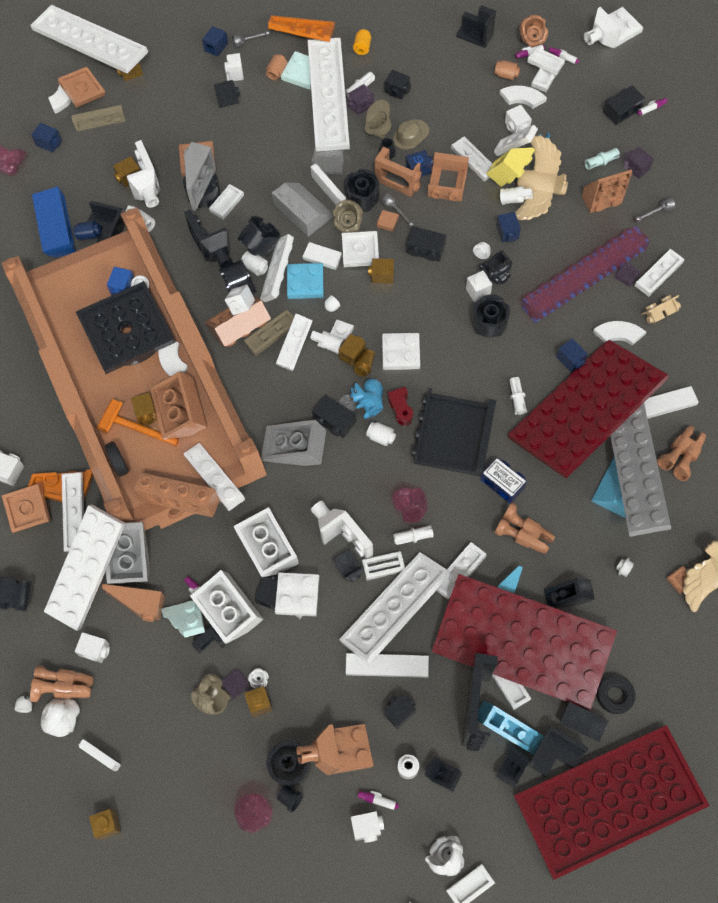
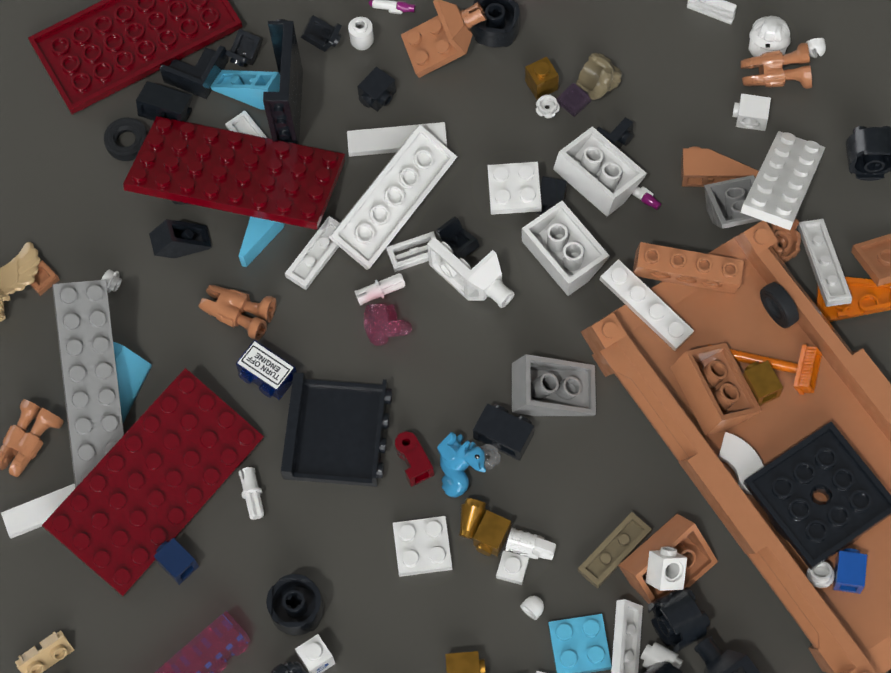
camera: 175 degrees right, 0 degrees up
(186, 618) = (648, 153): light aqua wing -> none
(294, 342) = (578, 536): white tile -> none
(381, 433) = (436, 415): white brick -> none
(619, 331) = (106, 613): white tile -> none

